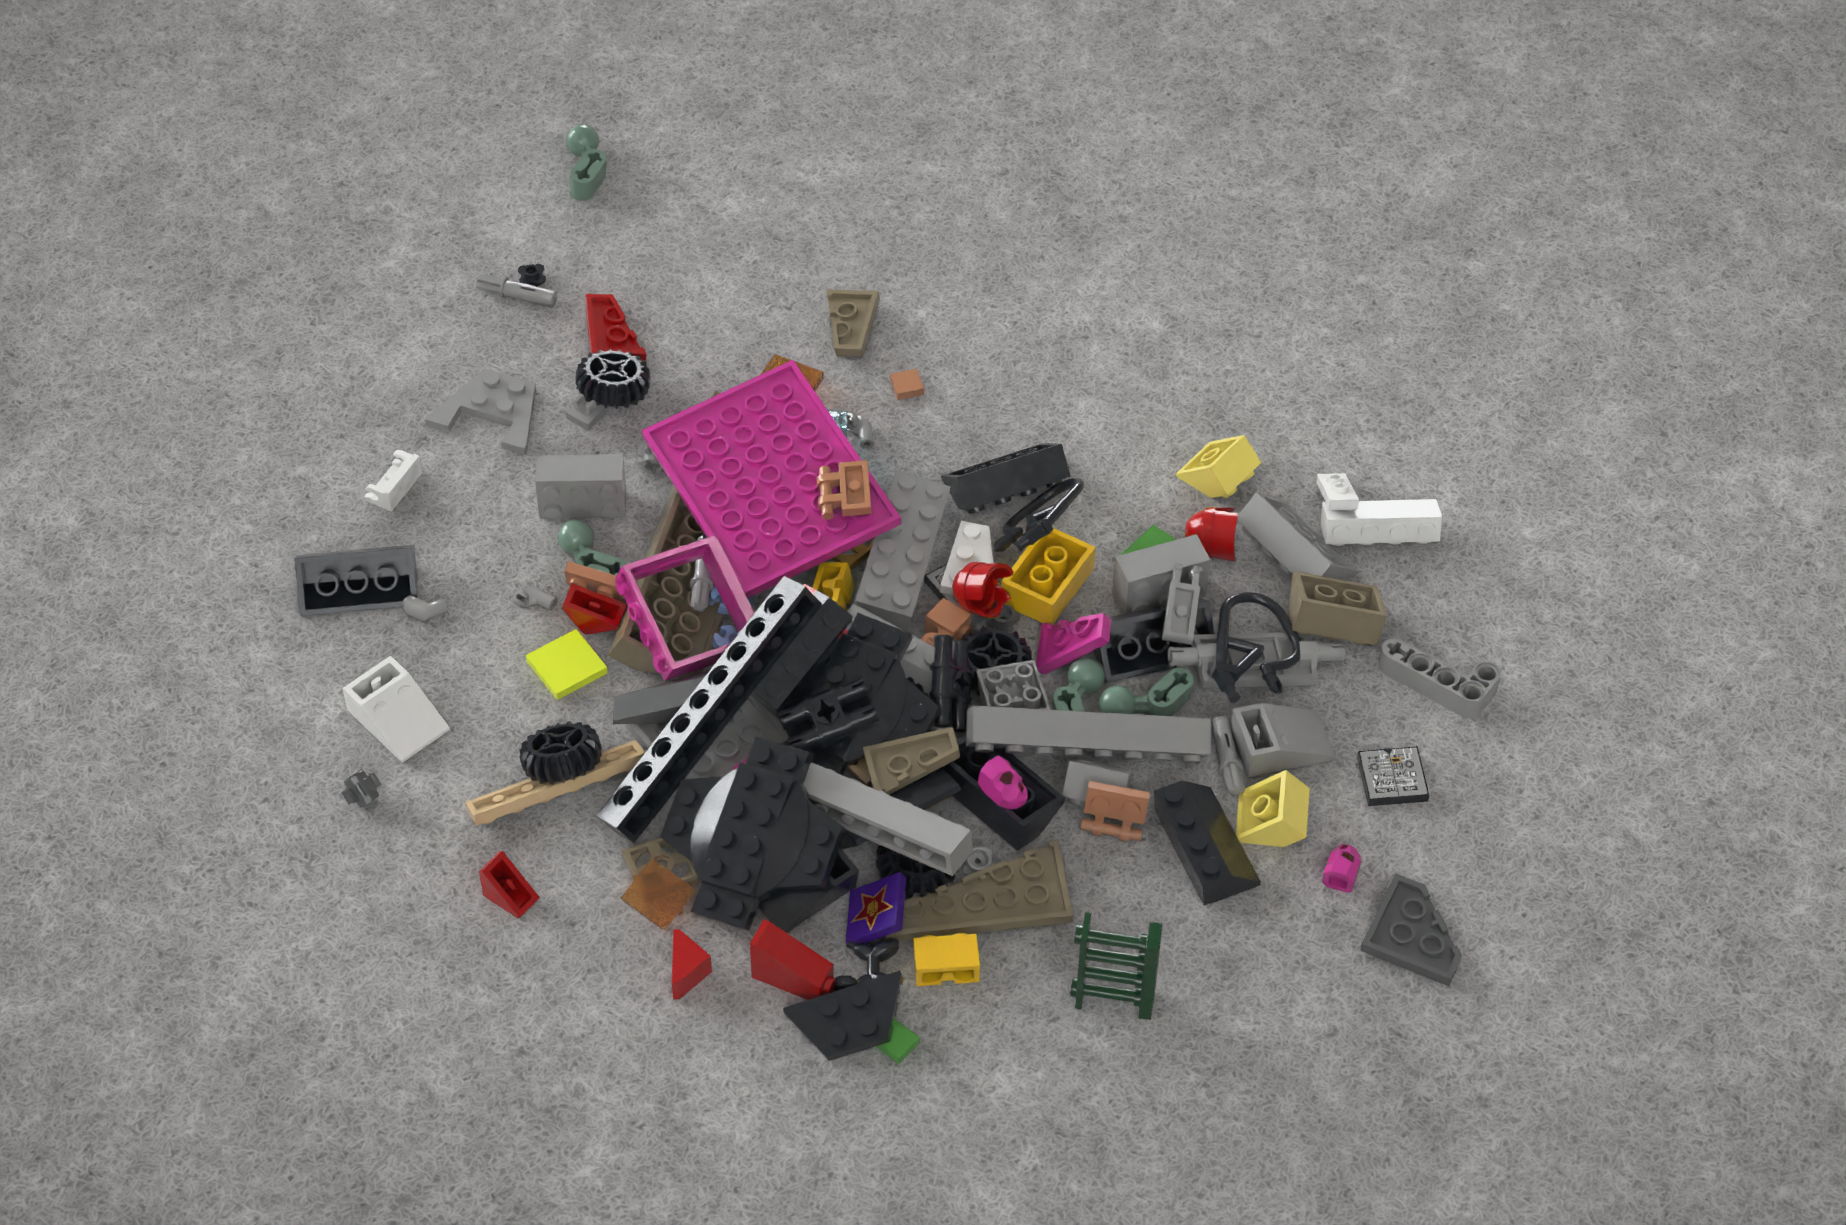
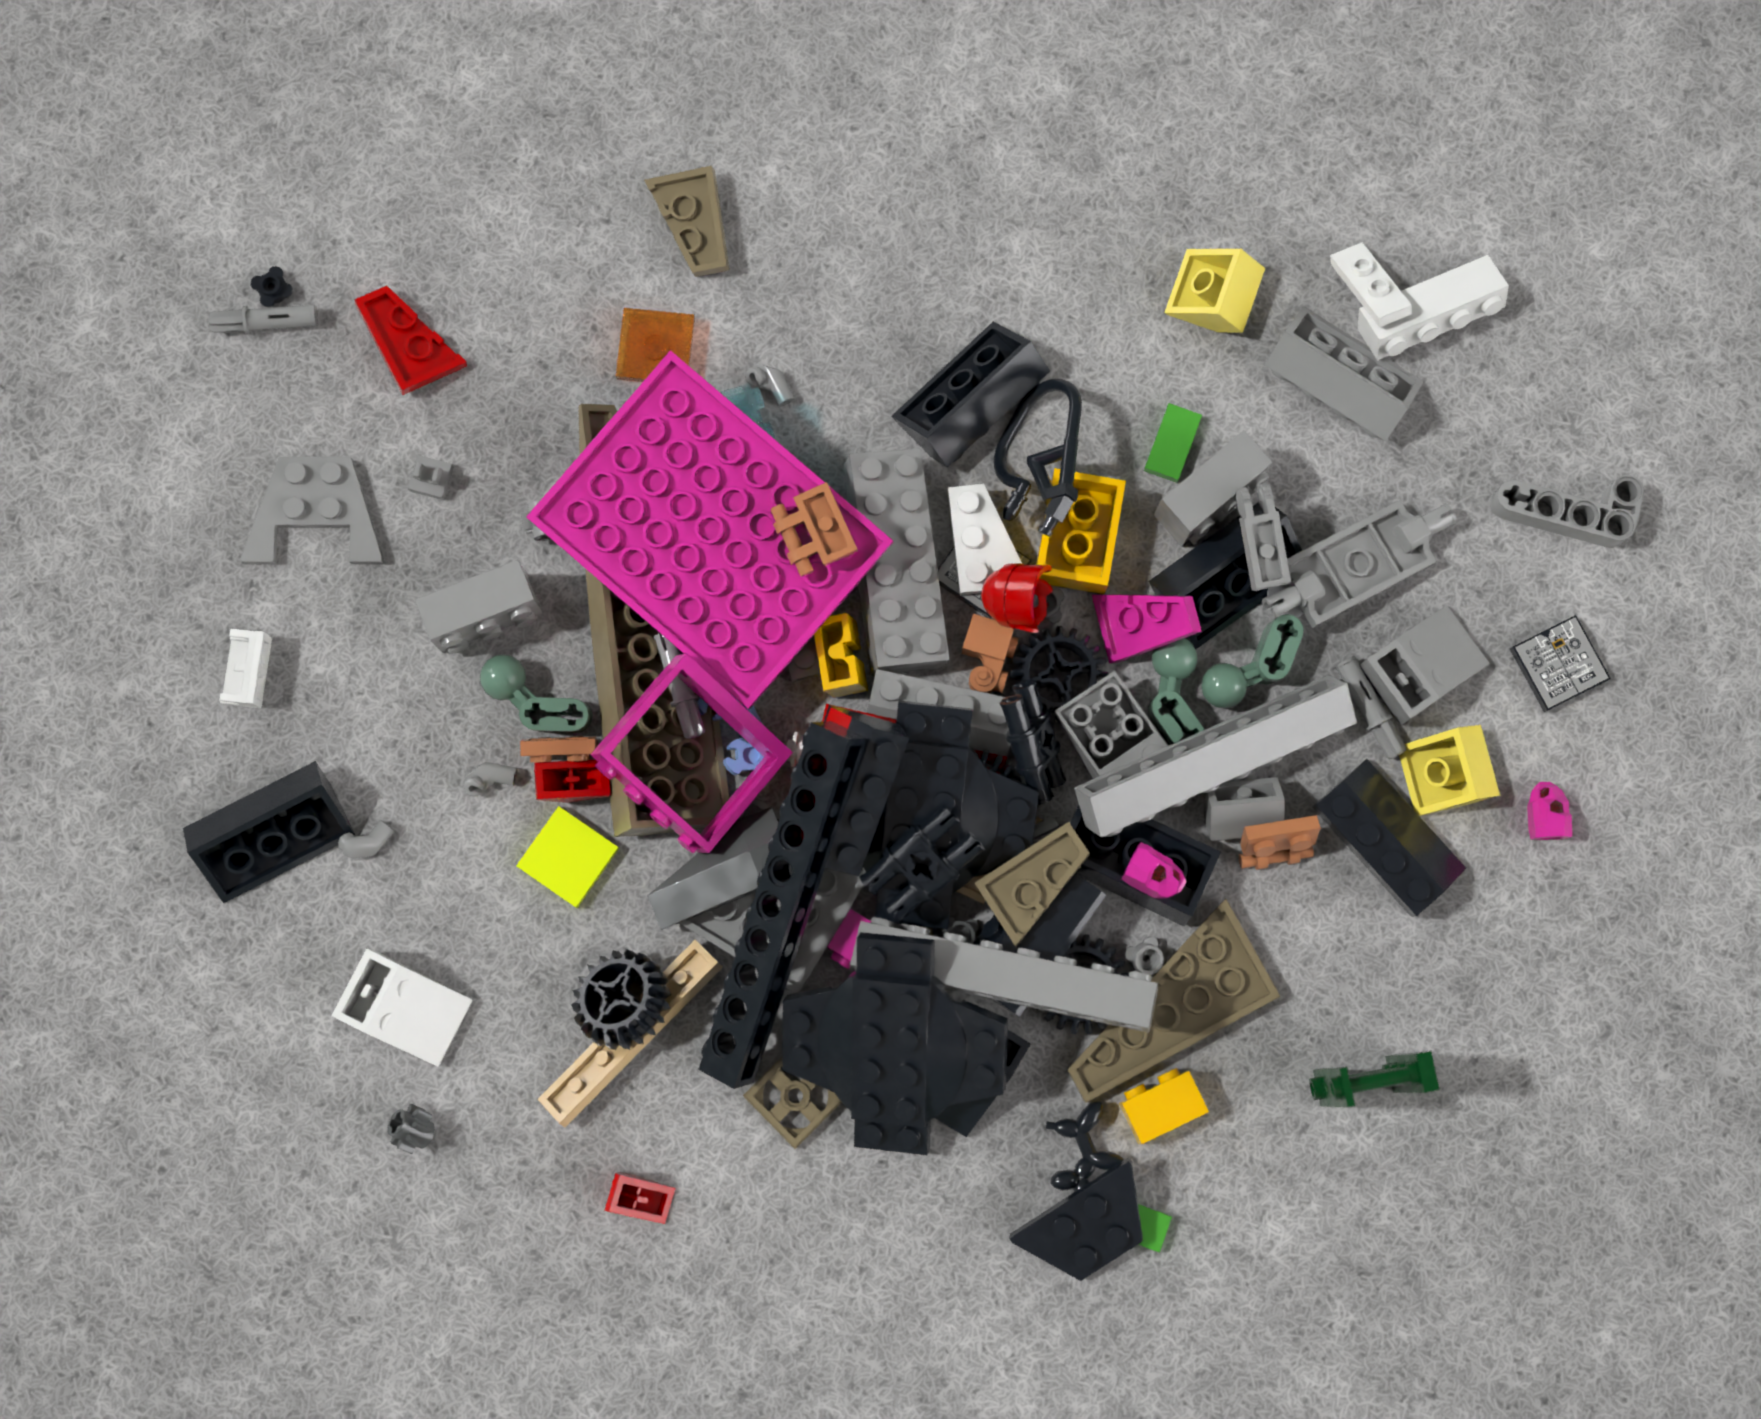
camera: 20 degrees left, 30 degrees up
(591, 167) = (245, 52): sand green beam -> none
(613, 378) = (449, 433): black gear -> none
(658, 894) = (809, 1141): clear orange piece -> none
(689, 964) = (881, 1223): red slope -> none
(789, 963) = (1002, 1187): red slope -> none
(876, 909) = (1064, 1076): dark purple tile -> none
(907, 384) = (798, 291): nougat tile -> none
(1215, 530) = (1247, 401): red helmet -> none
(1227, 674) = (1343, 616): black piece -> none
(1336, 608) = (1427, 459): dark tan slope -> none
(1412, 933) = (1652, 873): dark grey plate -> none

